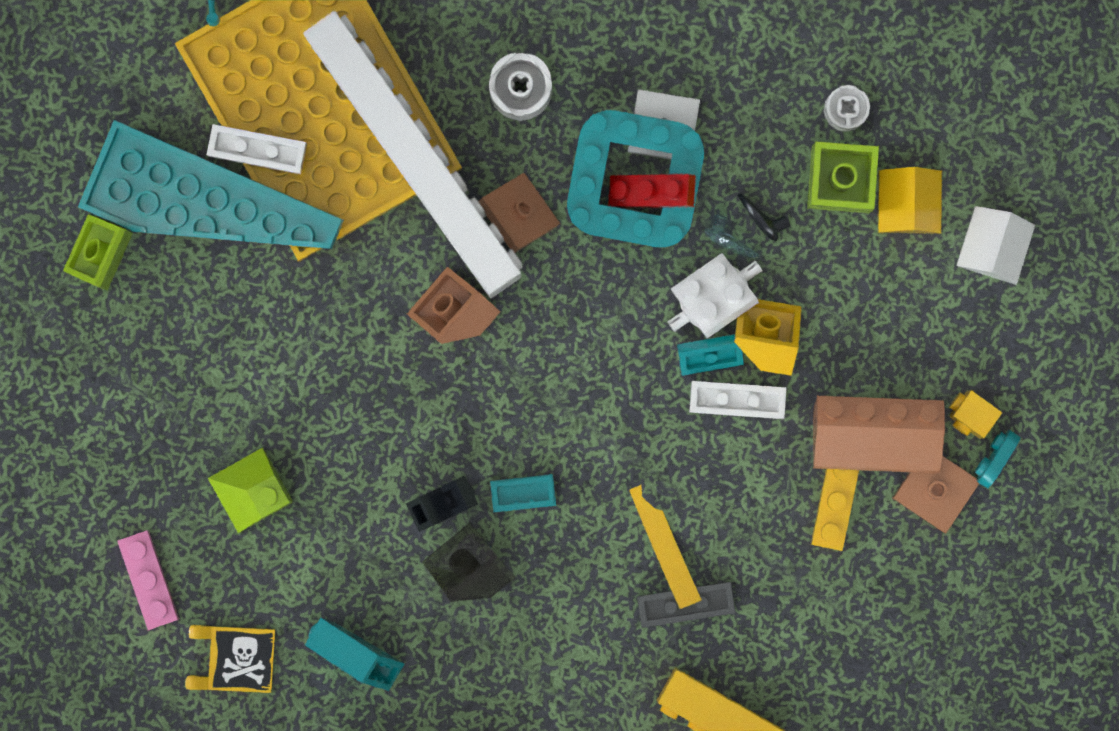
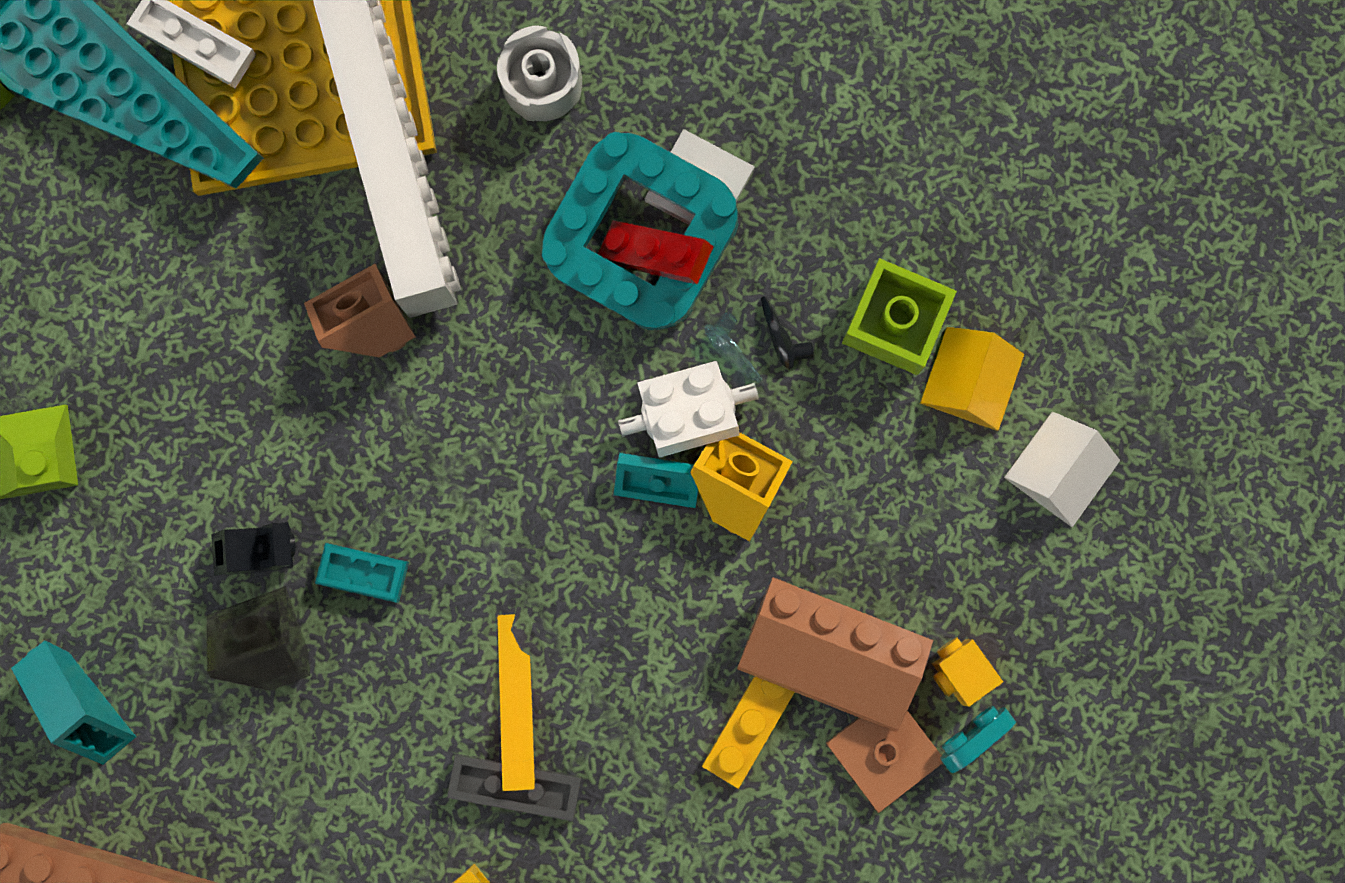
camera: 20 degrees right, 5 degrees down
(518, 212) = (481, 224): nougat plate -> none
(737, 400) = (672, 549): white plate -> none
(846, 108) = (932, 237): white wheel -> none

